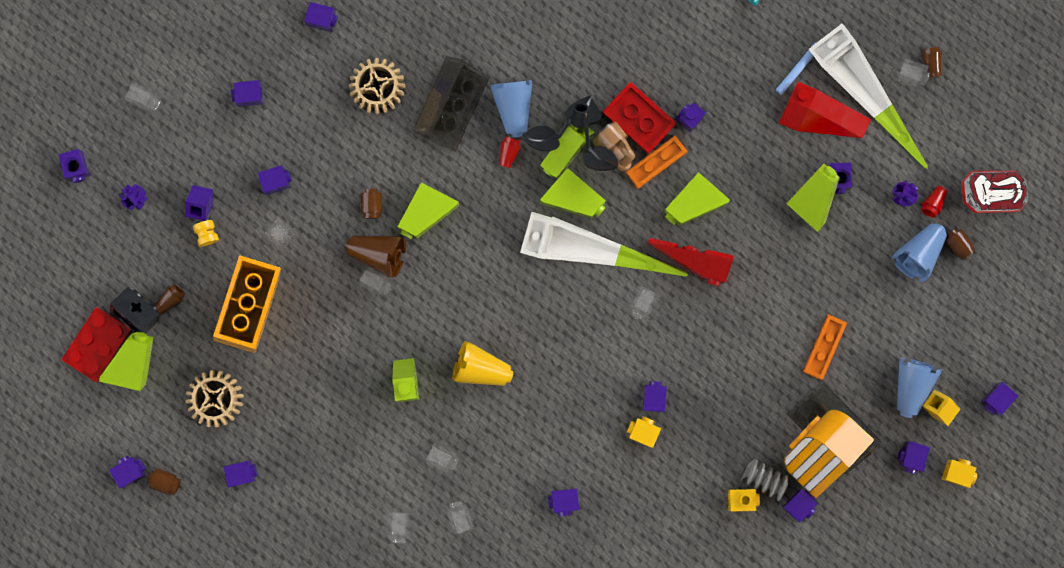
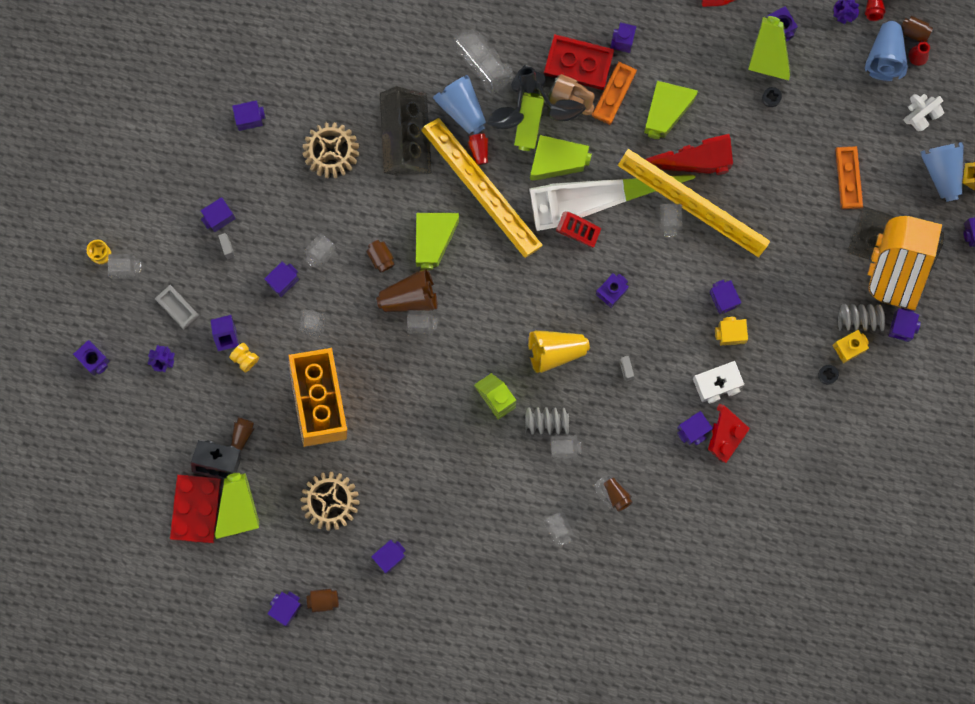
camera: 25 degrees left, 5 degrees down
(125, 70) = (95, 250): none -> yellow wheel
(171, 157) = (176, 307): none -> light grey tile
(241, 125) = (226, 246): none -> light grey tile
(319, 172) = (319, 251): none -> clear brick
(438, 426) = (546, 420): none -> light grey piece
(463, 525) = (618, 495): none -> reddish brown cone
(492, 188) = (482, 187): none -> yellow plate
(533, 416) = (626, 368): none -> light grey tile
(546, 258) = (563, 224): none -> red slope
(552, 344) = (609, 296): none -> dark purple brick
(554, 73) = (482, 60): none -> clear slope
(590, 520) = (726, 434): none -> red wing
(598, 463) = (706, 382): none -> white brick
(668, 294) = (693, 203): none -> yellow plate
(703, 515) = (833, 370): none -> black bush
(789, 240) = (776, 92): none -> black bush
(923, 318) = (930, 106): none -> white hips
(945, 269) = (919, 54): none -> red cone

